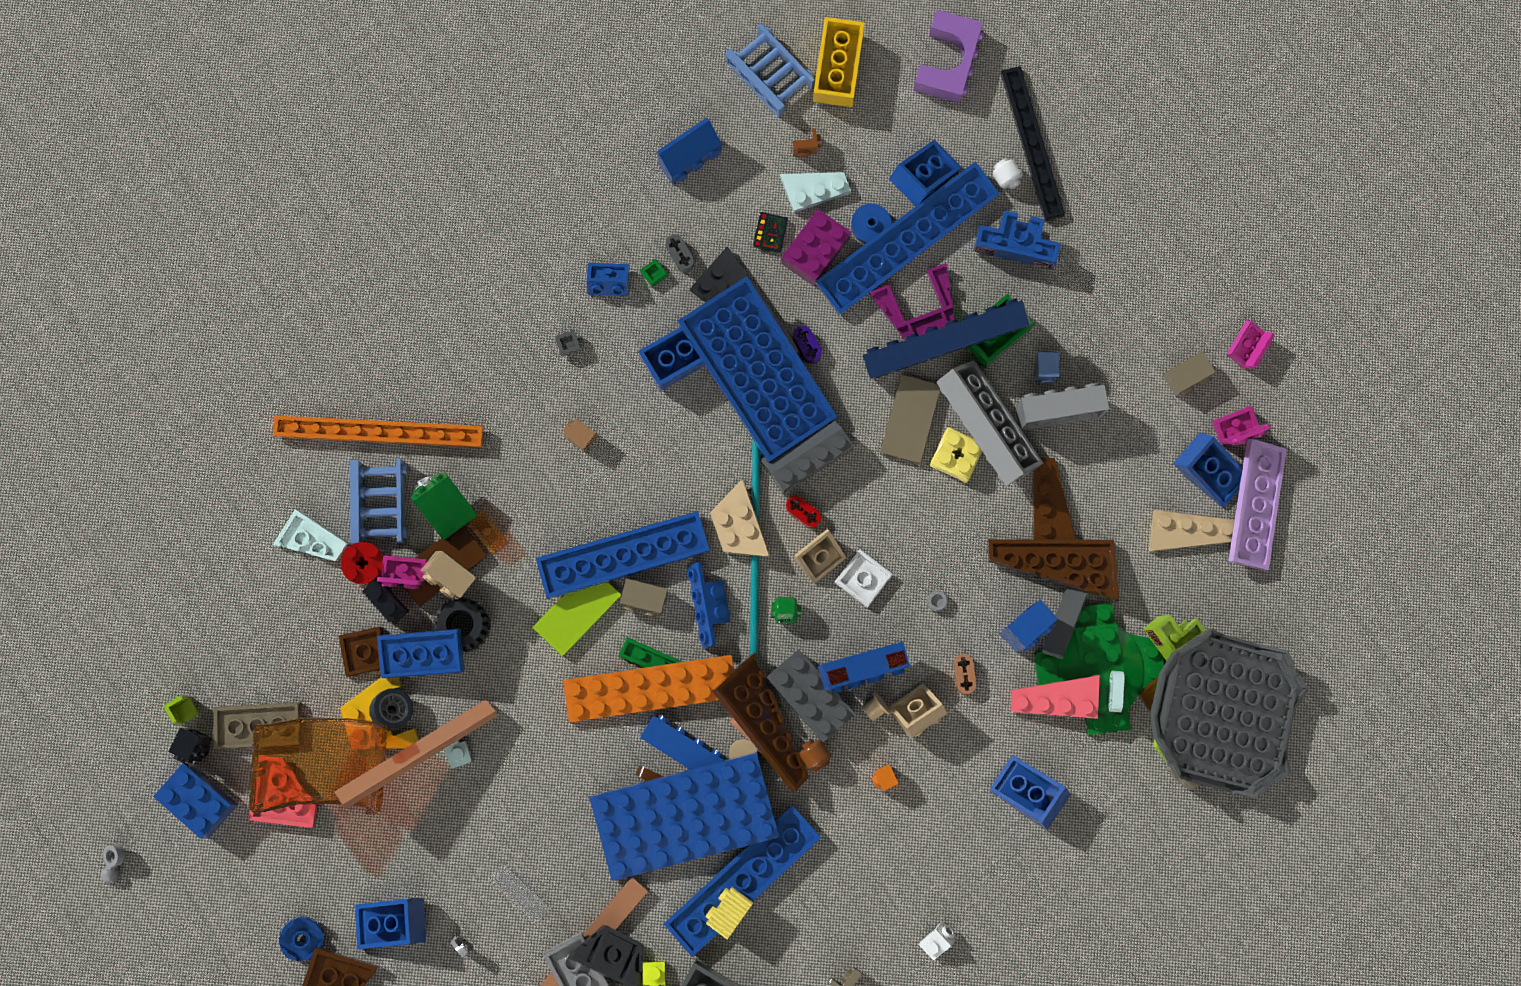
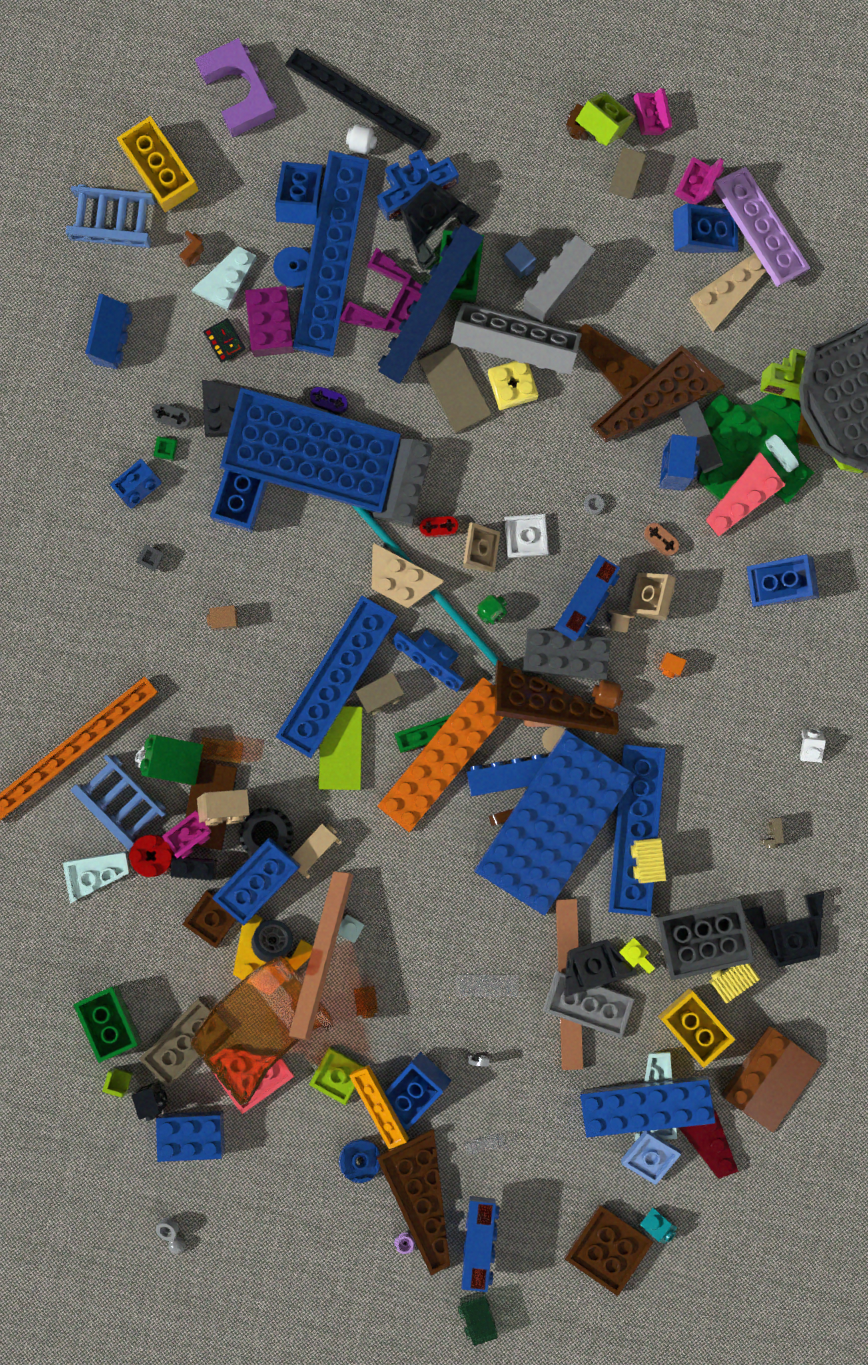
camera: 40 degrees left, 5 degrees up
(215, 659) = (107, 1023): none -> green brick
(345, 857) = (333, 1075): none -> lime tile
(353, 911) = (379, 1107): none -> light orange plate
(418, 821) = (366, 1001): none -> clear orange bracket
(488, 669) = (315, 847): none -> tan brick
(1007, 271) = (427, 213): none -> black wing
(1183, 301) = (573, 126): none -> reddish brown bracket
(1207, 318) = (605, 118): none -> lime brick

